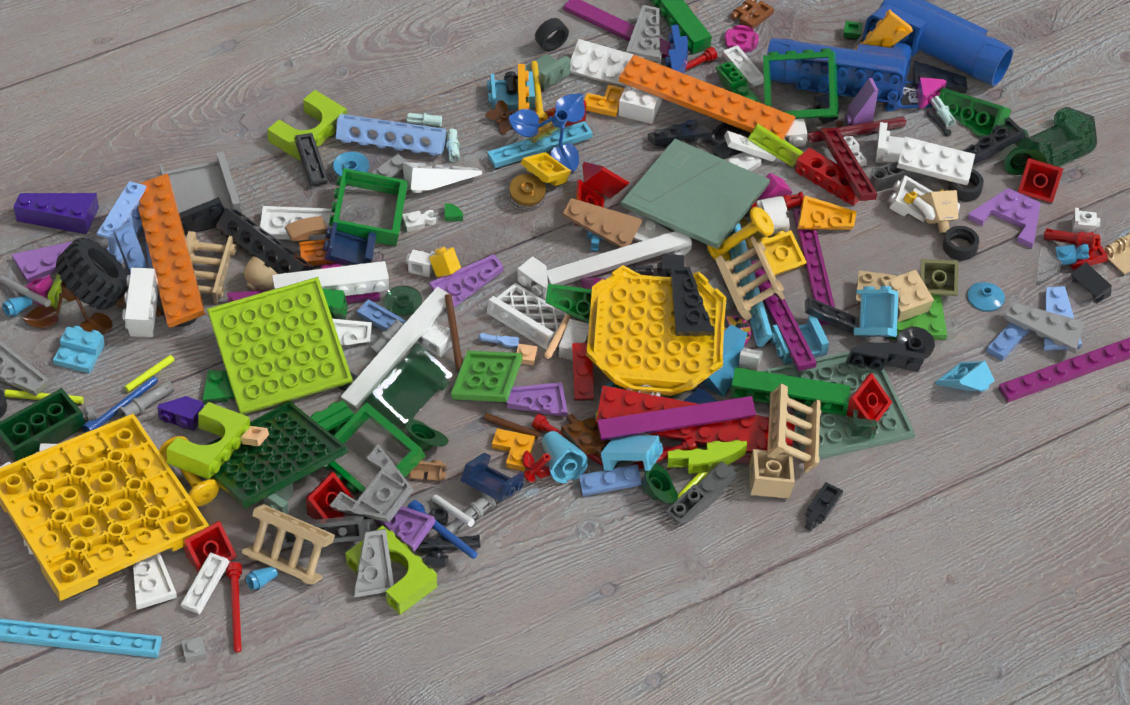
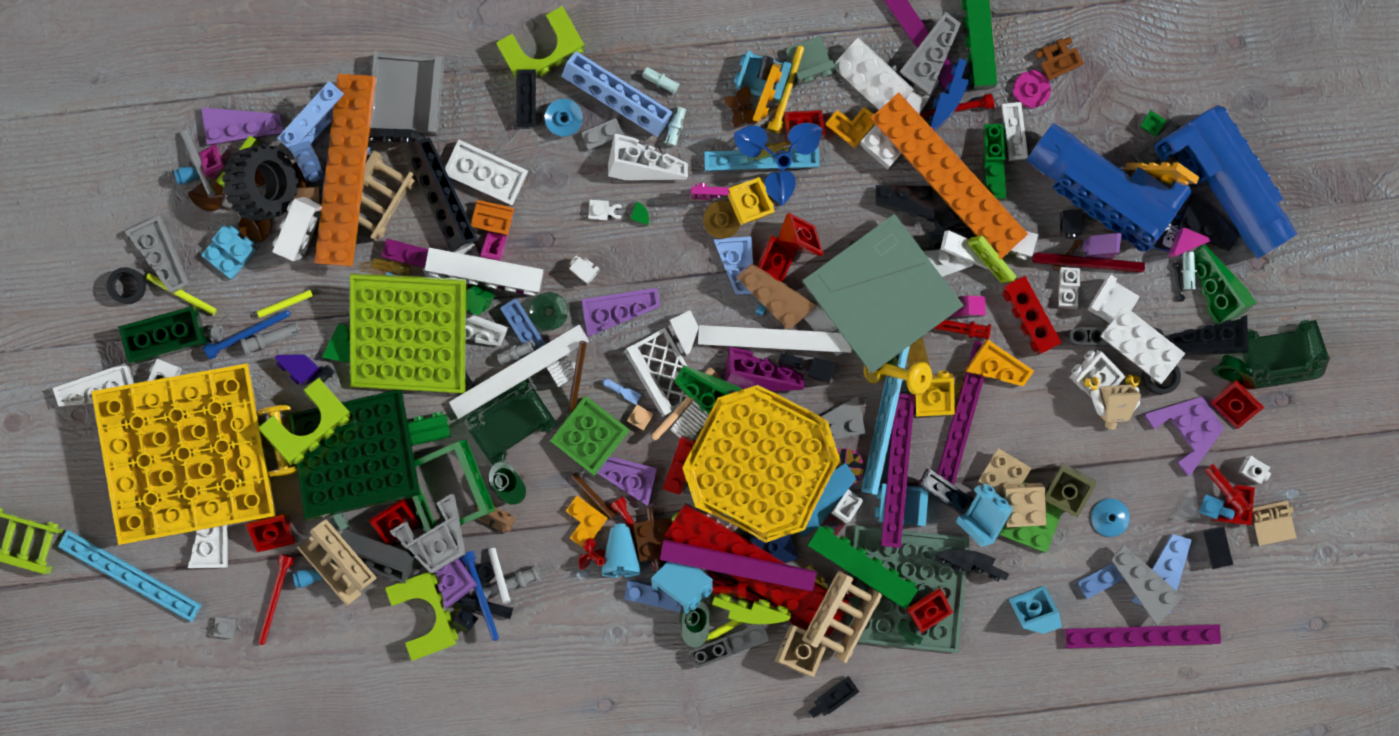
camera: 20 degrees right, 35 degrees up
(57, 210) = (266, 72): dark purple wedge -> none
(204, 583) = (254, 566): white tile -> none
(254, 436) = (347, 432): light nougat plate -> none
(258, 275) = (424, 231): tan cylinder -> none
(305, 227) = (487, 190): medium nougat slope -> none
(348, 248) = (520, 228): dark blue panel -> none
(374, 566) = (404, 613): light grey wing -> none
(375, 183) = (534, 159): green window -> none
(444, 261) = (604, 283): yellow brick -> none
(490, 481) = (546, 558): dark blue panel -> none
(504, 171) = (702, 192): none -> dark pink wing
(550, 215) = (735, 255): none -> light blue wing
(557, 39) = (833, 18): black tyre -> none
(688, 306) = (799, 457): black wing -> none
(732, 279) = (868, 417): tan fence -> none
(777, 211) = (947, 348): white brick -> none
(807, 54) = (1064, 178): green window -> none
(848, 164) = (1050, 317): dark red plate -> none
(917, 337) = (1015, 561): black dish -> none
(963, 233) = (1132, 450): black tyre -> none

